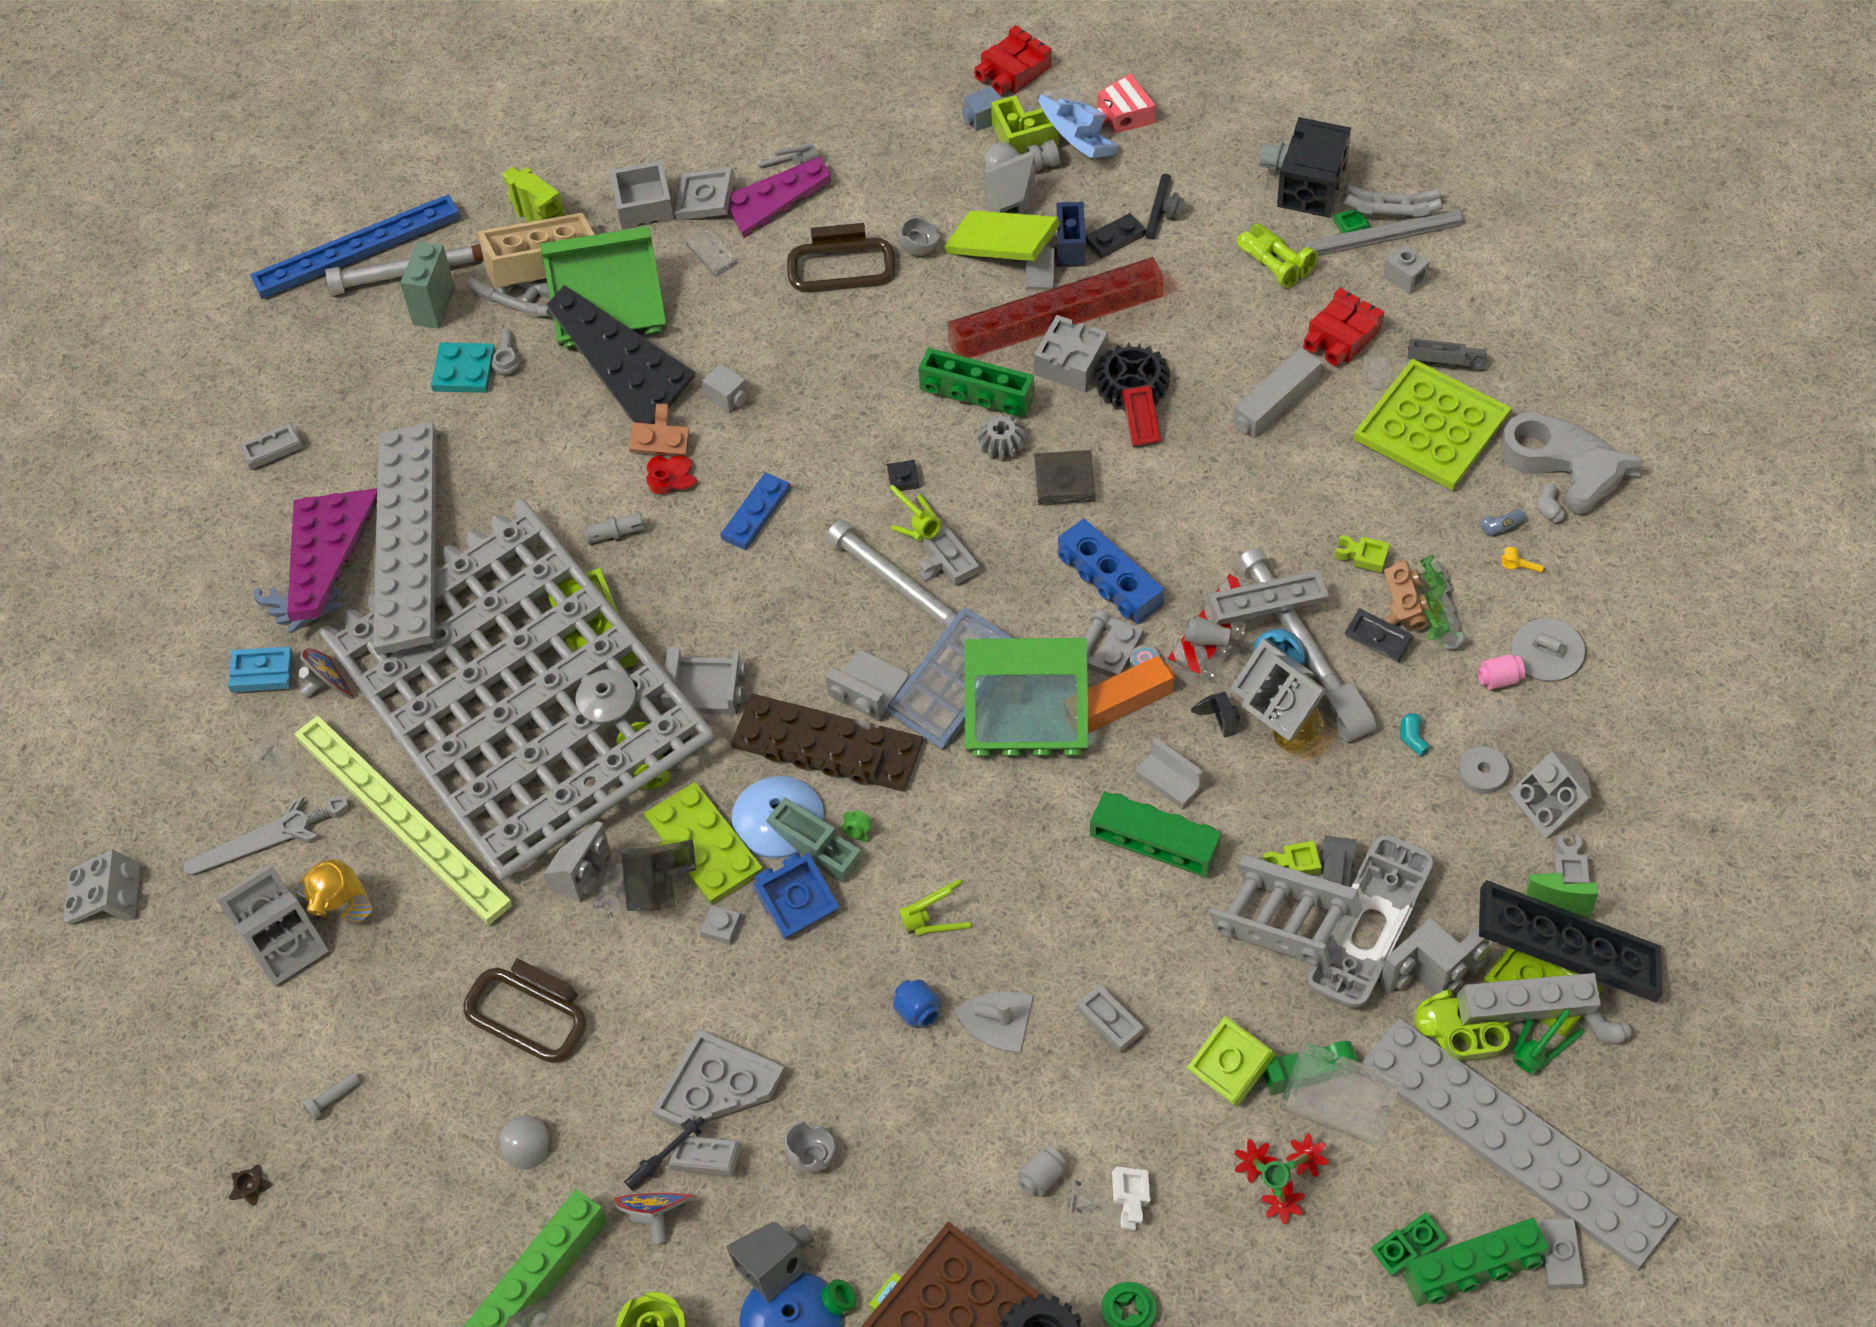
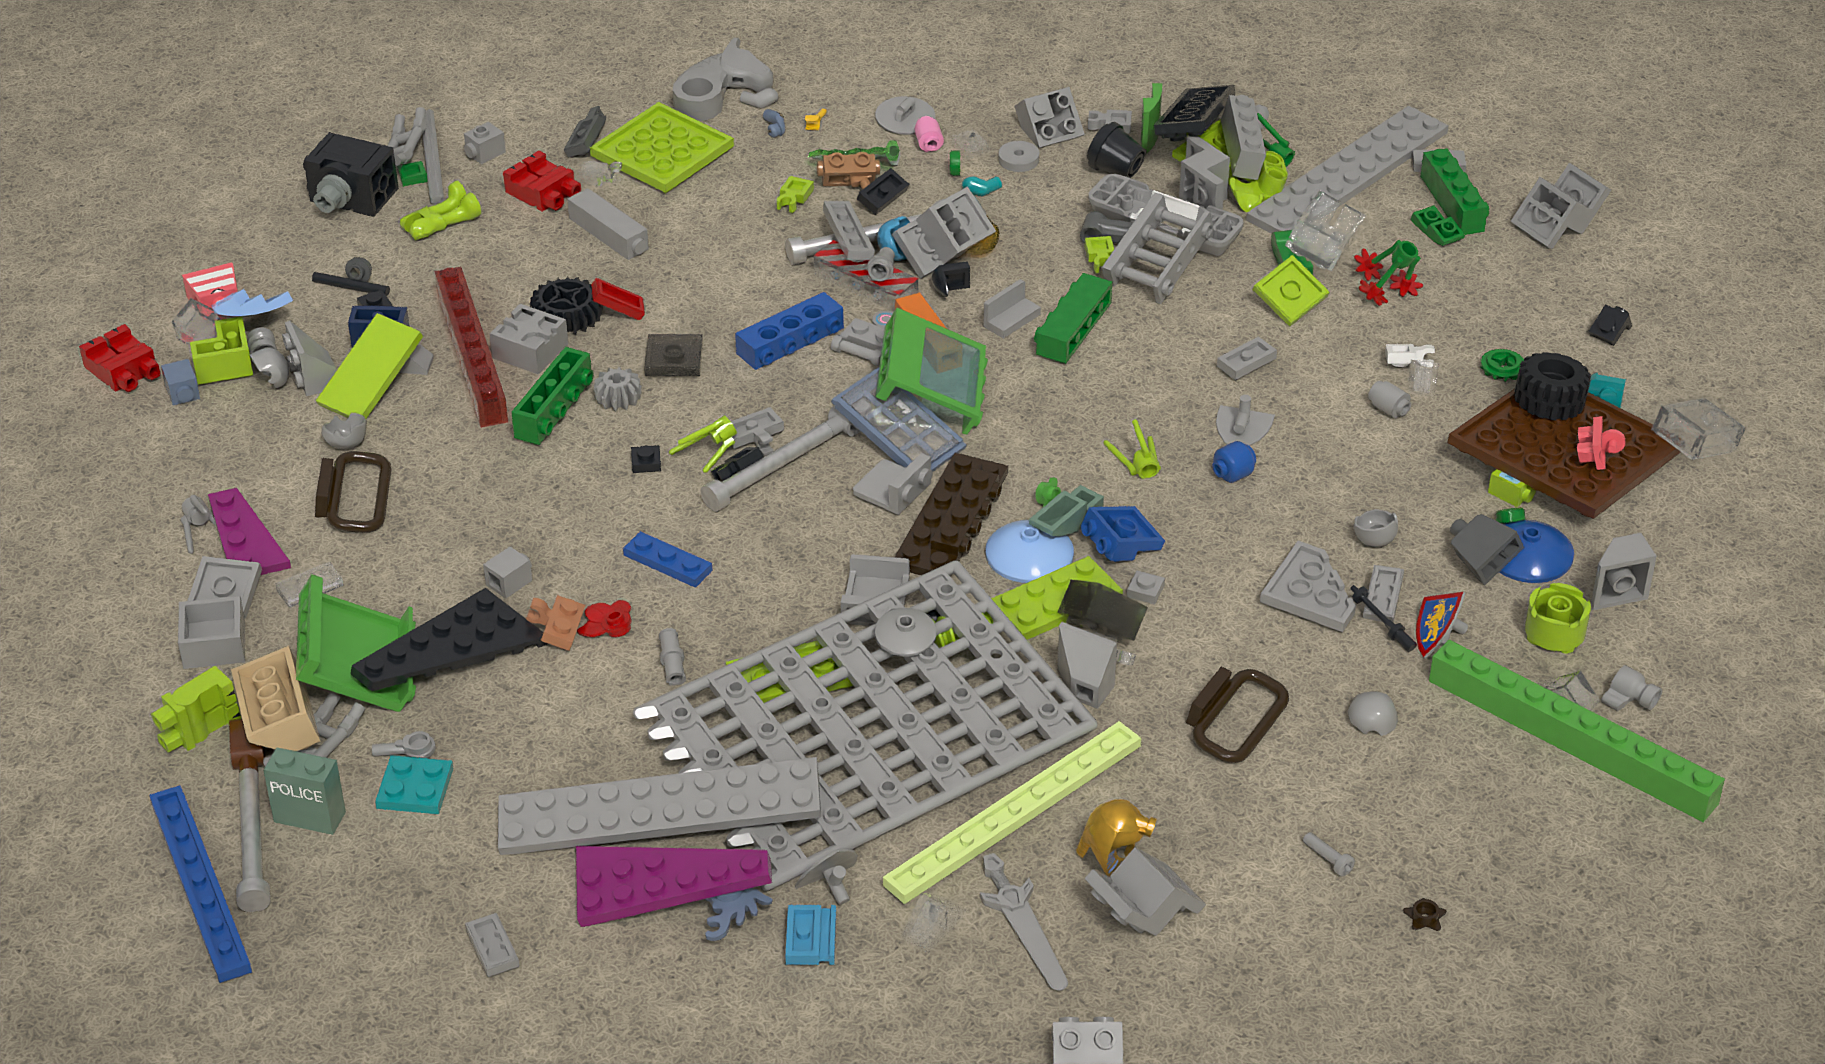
camera: 90 degrees left, 15 degrees down
(893, 550) = (737, 463): none -> black plate
(1447, 702) = (955, 163): none -> green tile
(1483, 858) = (1115, 151): none -> black piece

